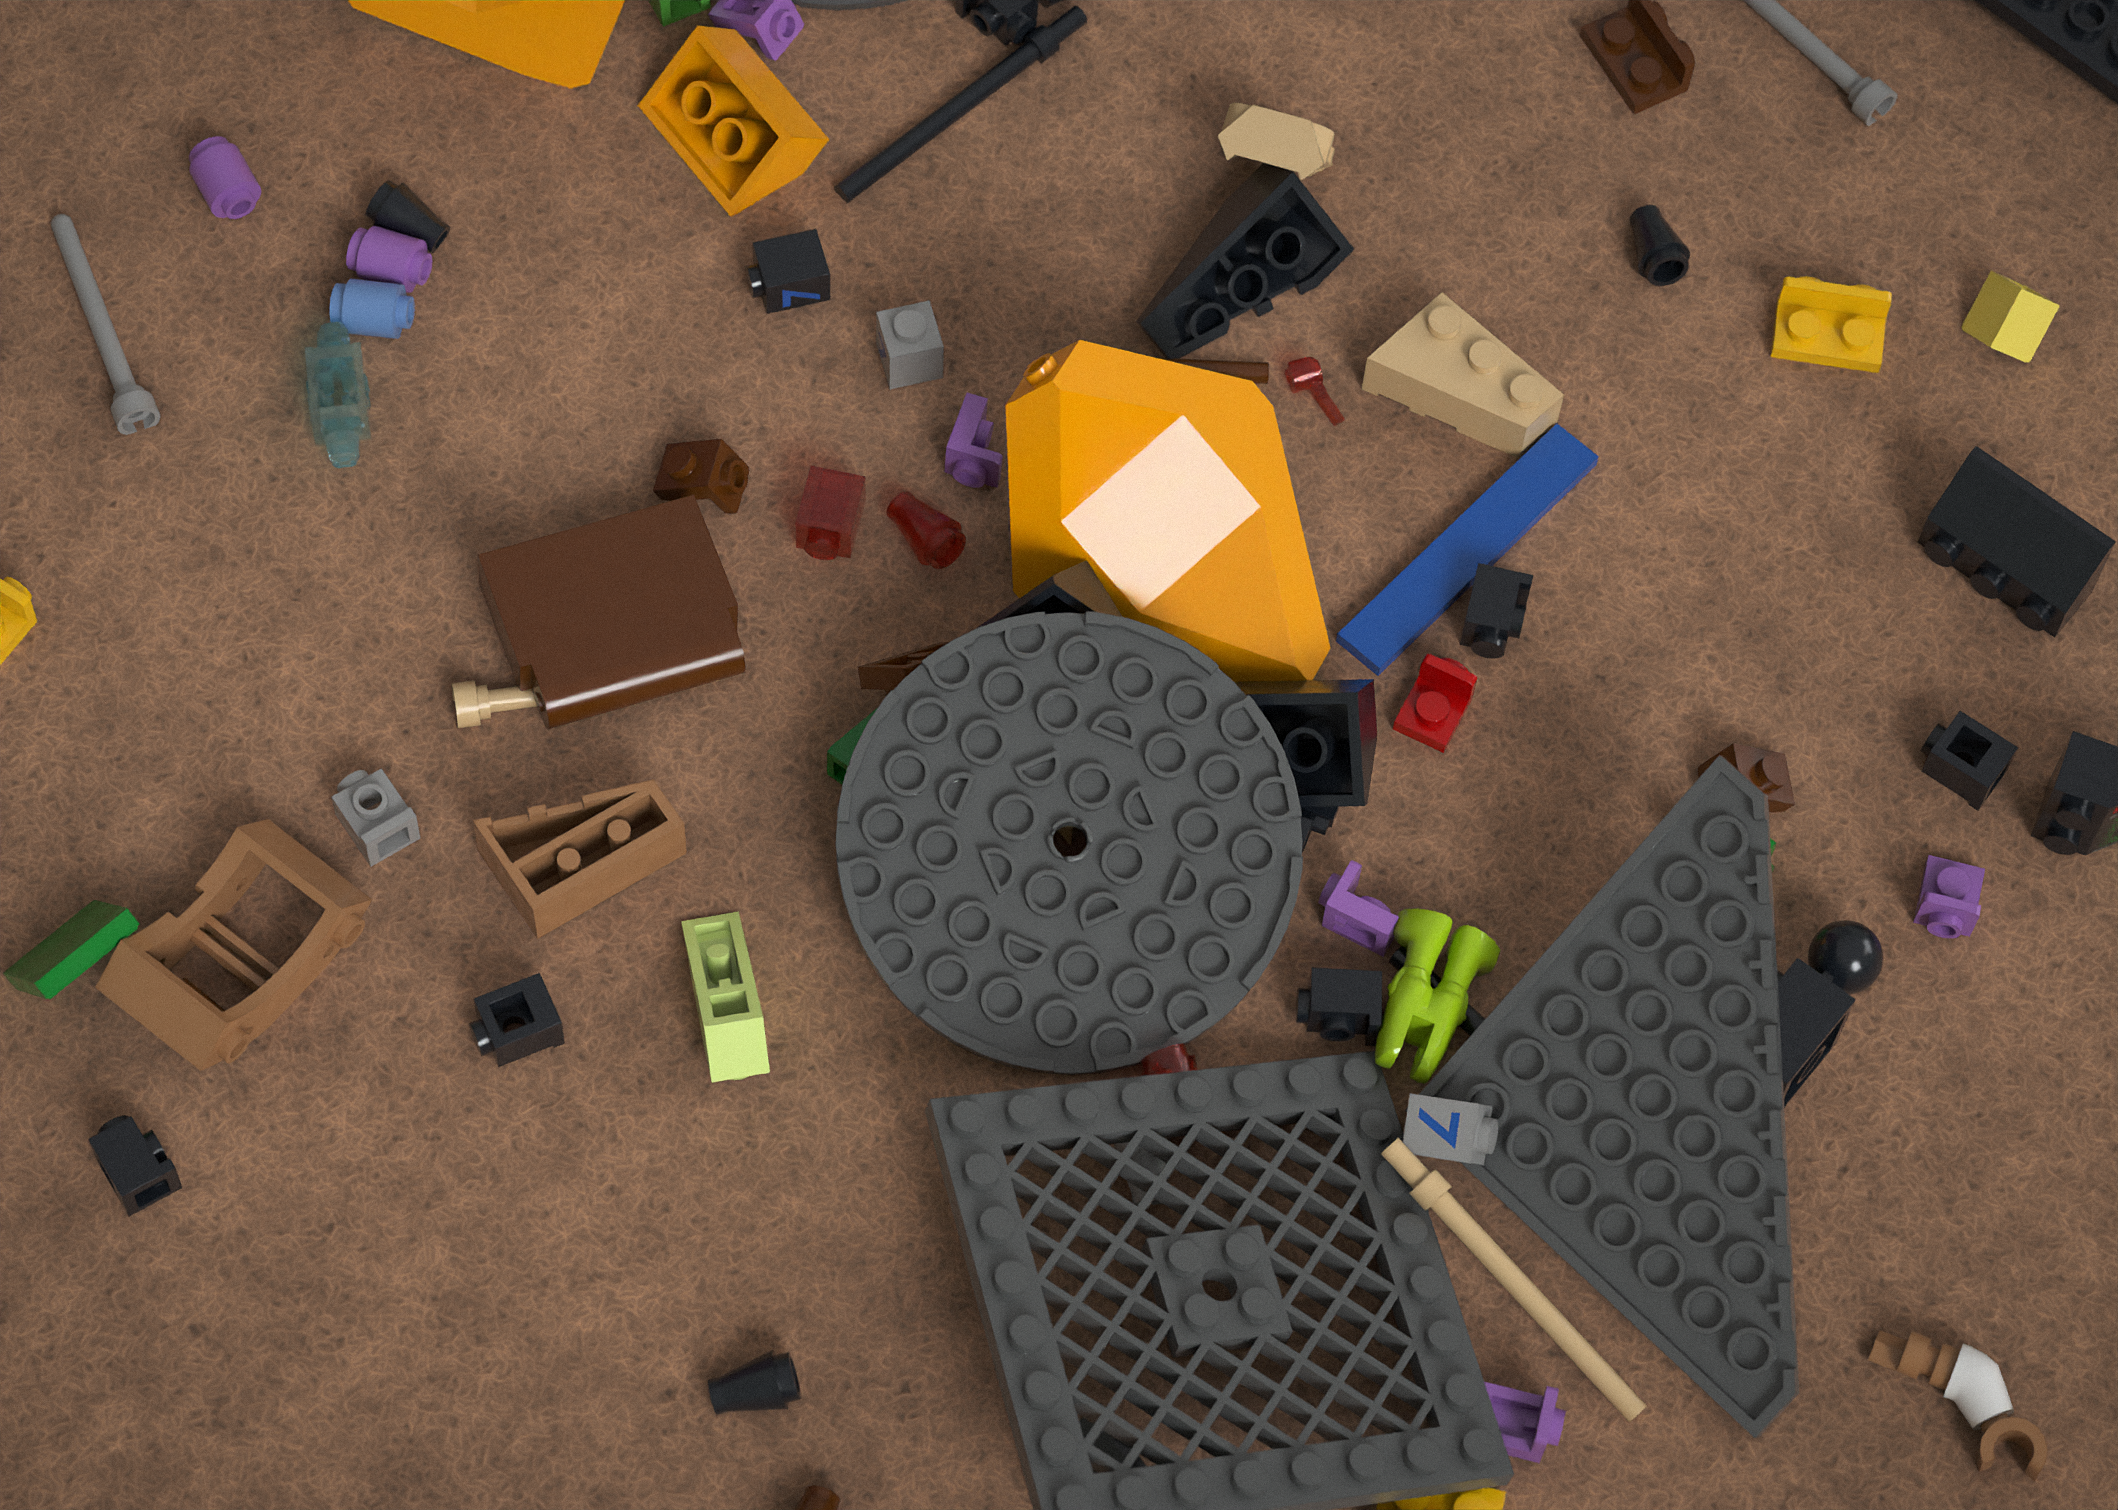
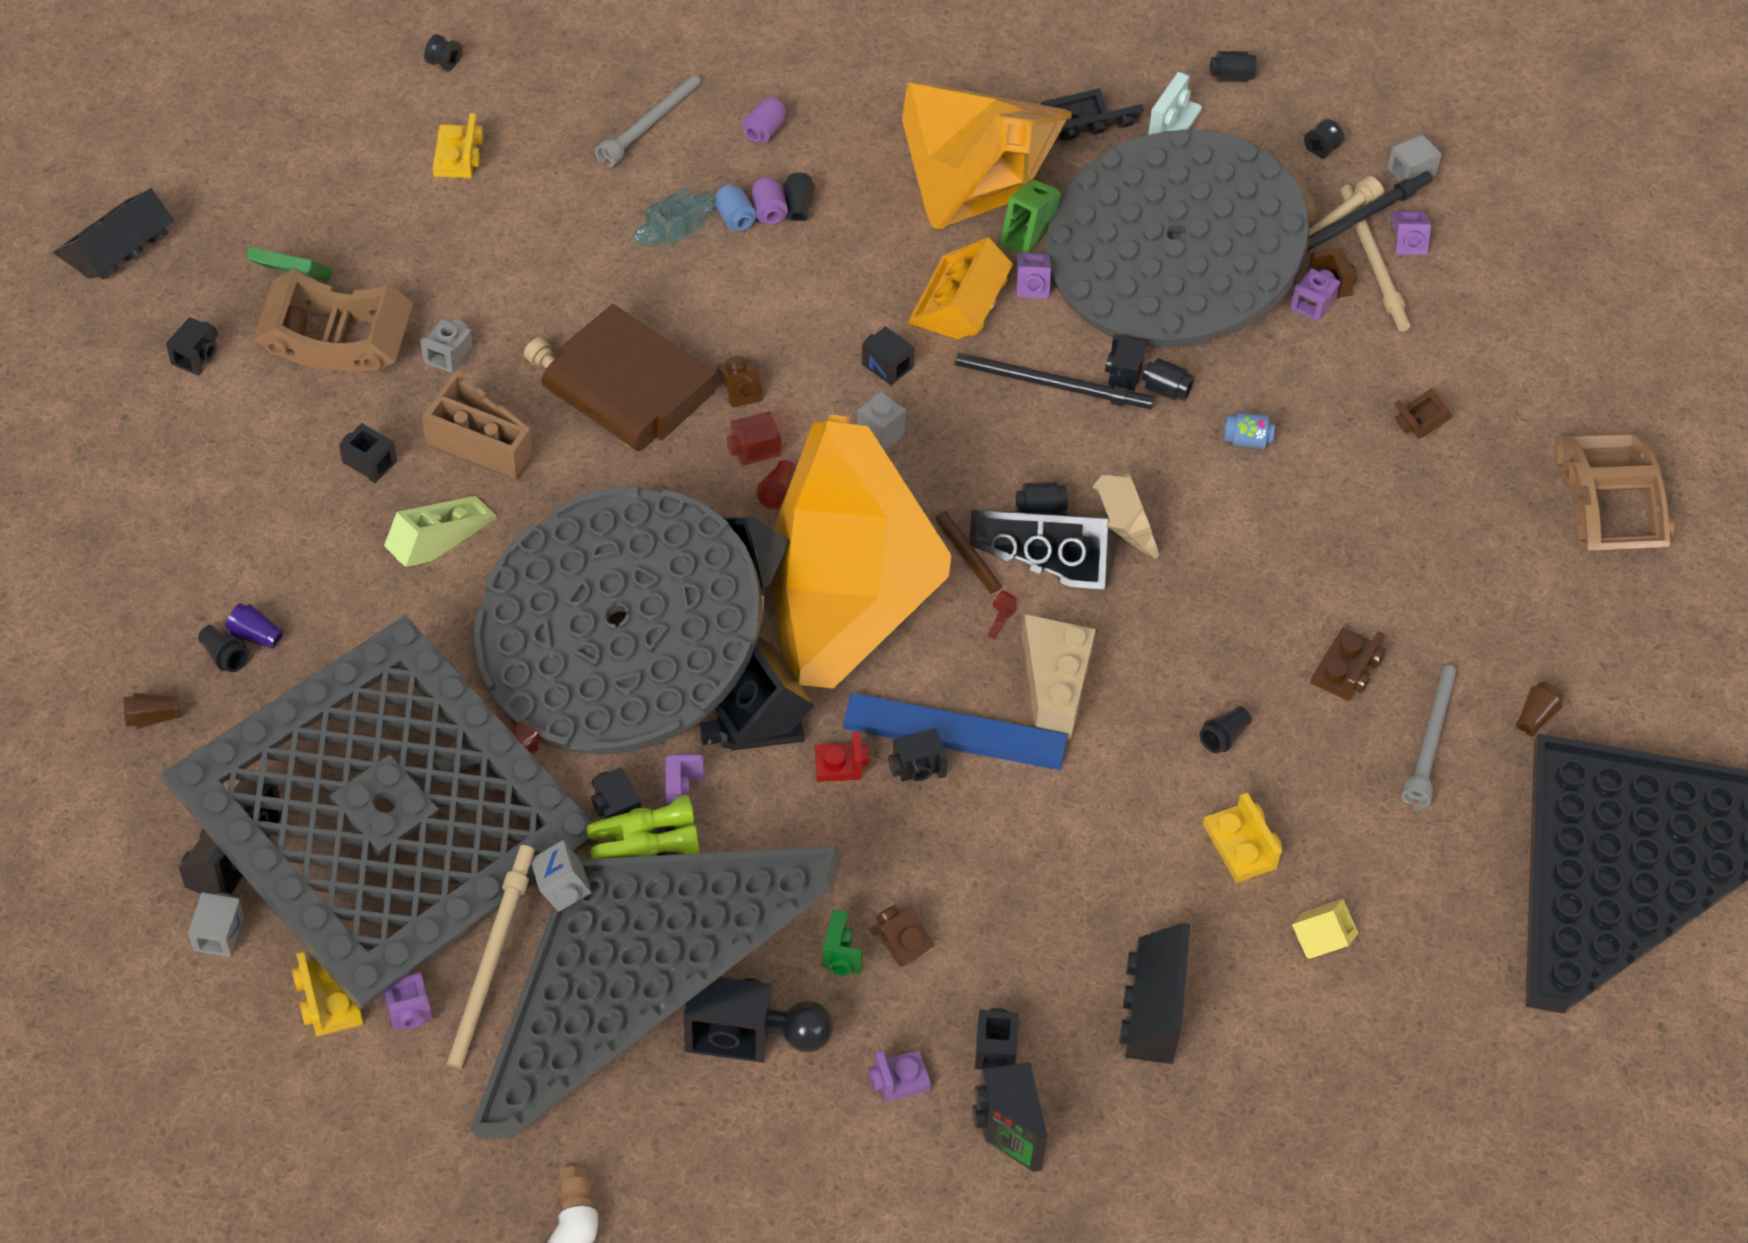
camera: 60 degrees right, 10 degrees down
(743, 1326) = (253, 626): none -> dark purple cone
(1164, 233) = (1042, 497): none -> black brick

